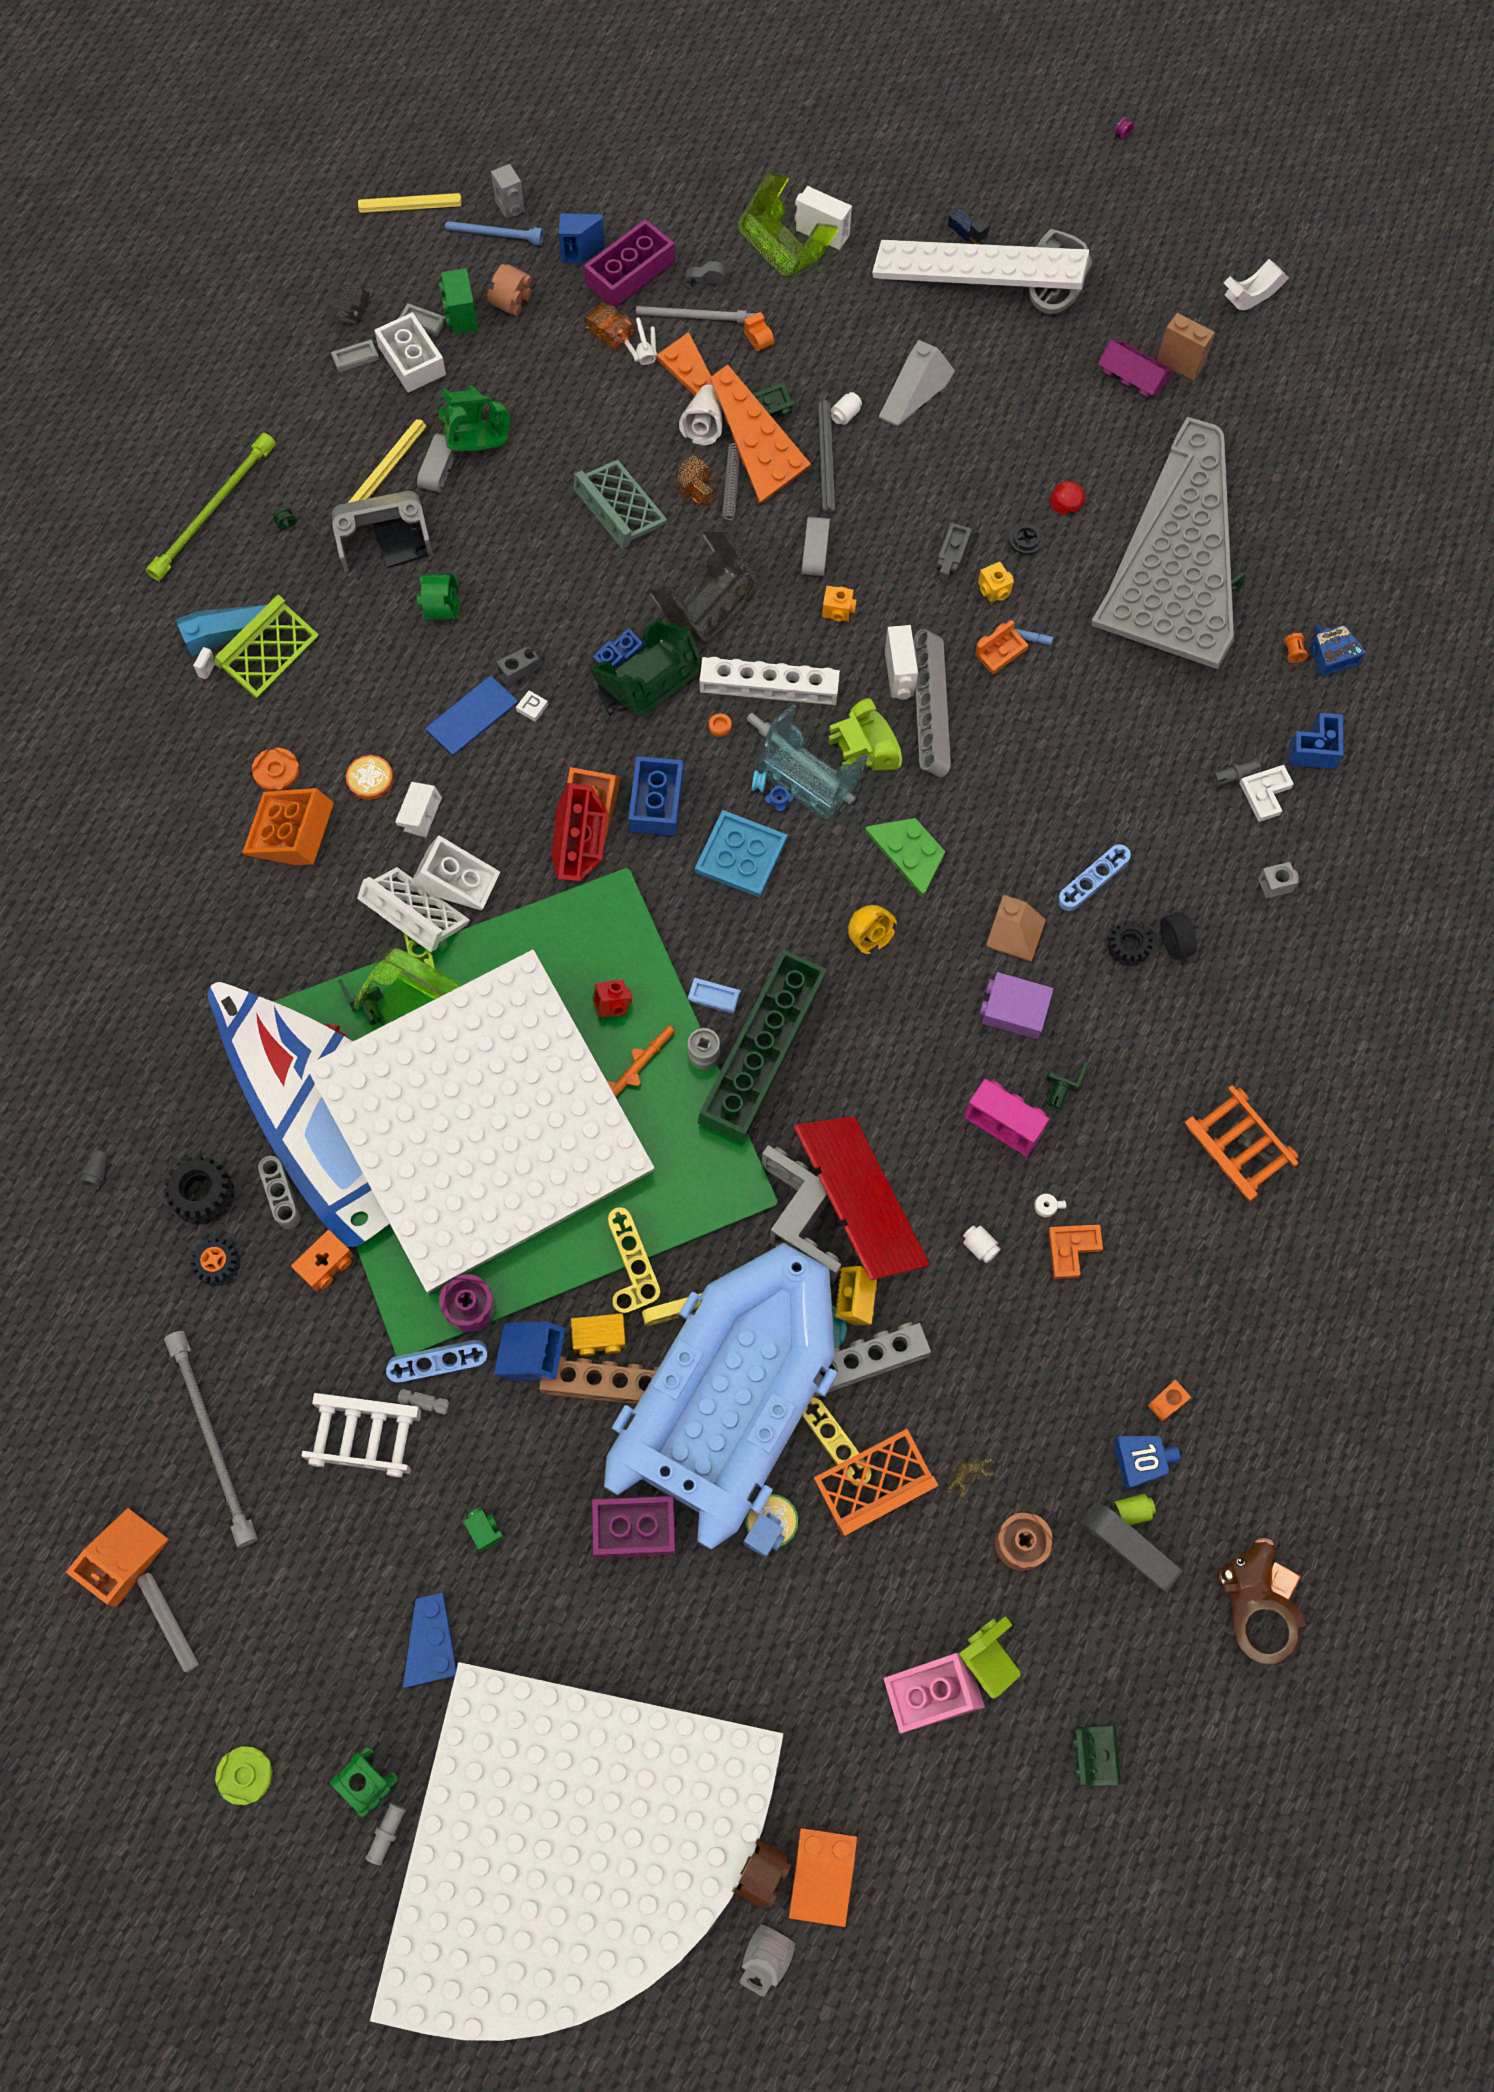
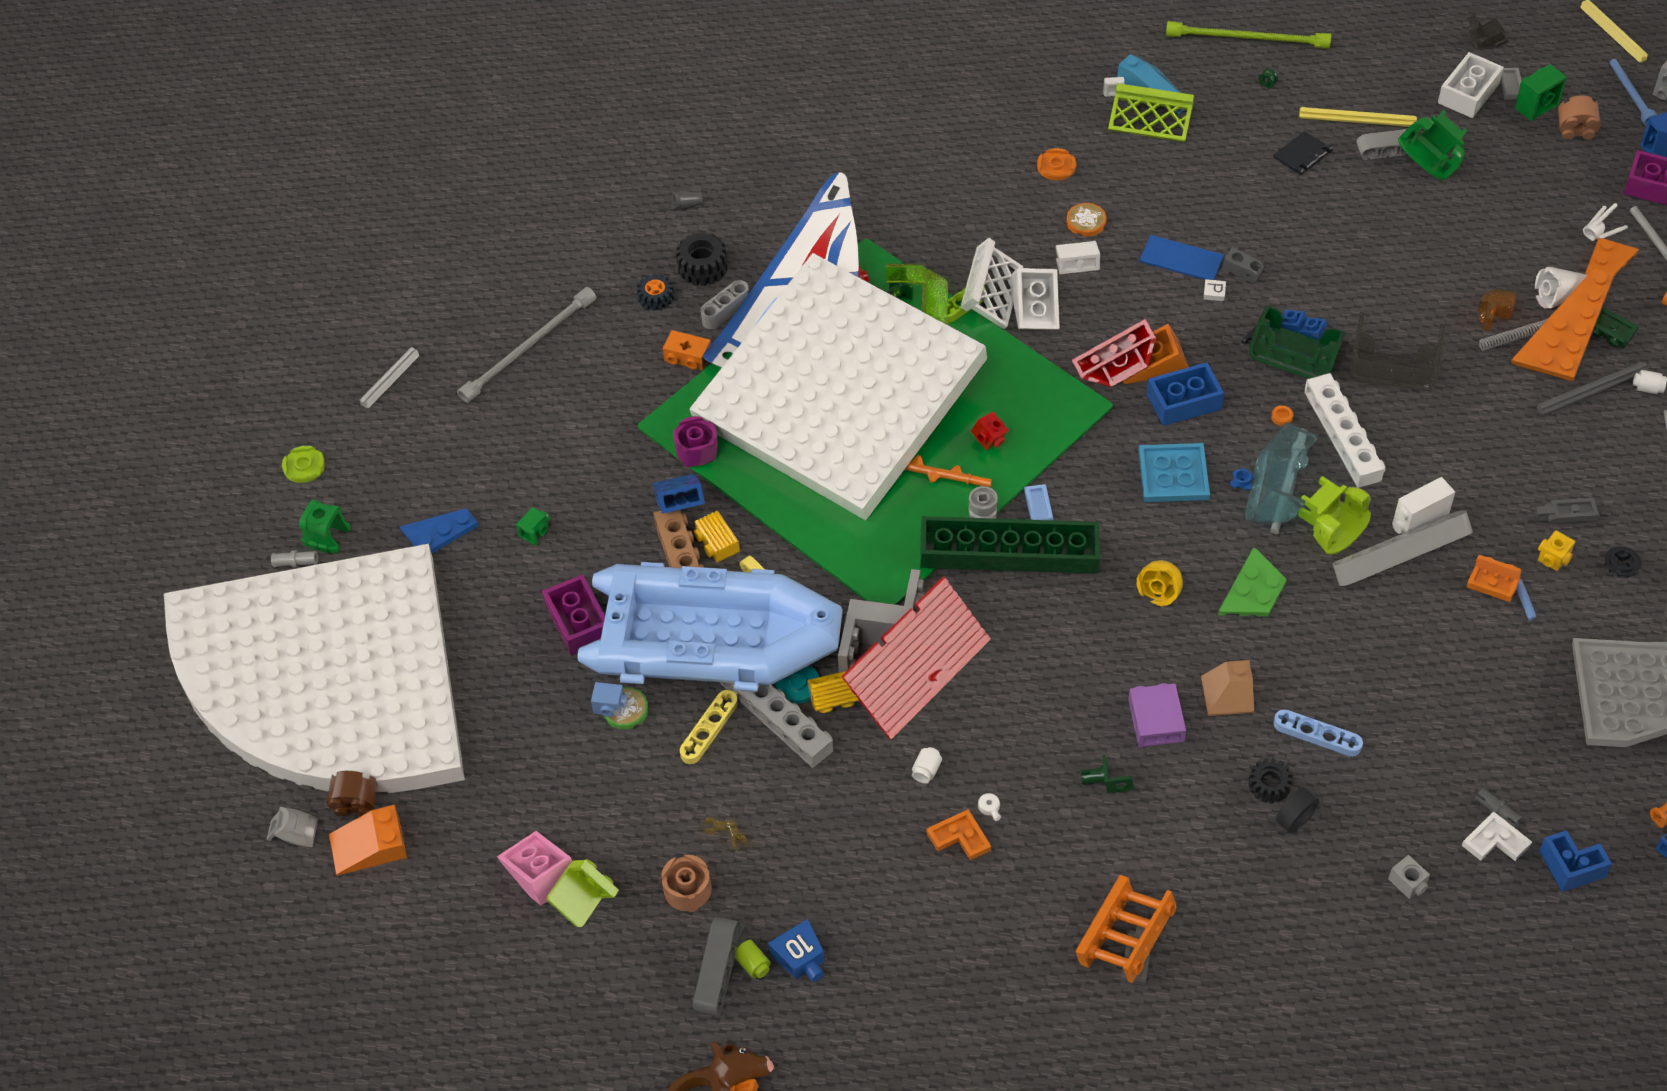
camera: 70 degrees right, 15 degrees down
(117, 1557) = (419, 328): orange slope -> none
(289, 826) = (1014, 190): orange slope -> none
(353, 1409) = (585, 414): white fence -> none
(355, 355) = (1443, 57): light grey tile -> none
(373, 510) = (1322, 133): light grey windscreen -> none
(423, 1401) = (613, 454): light grey axle -> none
(438, 1365) = (644, 450): light blue beam -> none
(439, 597) = (1264, 191): green brick -> none
(602, 508) = (1427, 257): sand green fence -> none
(609, 325) = (1601, 194): clear orange brick -> none
(628, 1258) = (805, 509): light yellow beam -> none
(759, 781) = (1247, 458): medium azure bush -> none
(815, 546) = (1496, 412): light grey beam -> none
(838, 603) = (1450, 446): light orange brick -> none
(886, 1503) = (671, 775): orange fence -> none
(1006, 1117) = (1046, 737): dark pink brick -> none
(1097, 1756) = (535, 1000): dark green bracket -> none
(1169, 1400) = (863, 955): orange leg -> none

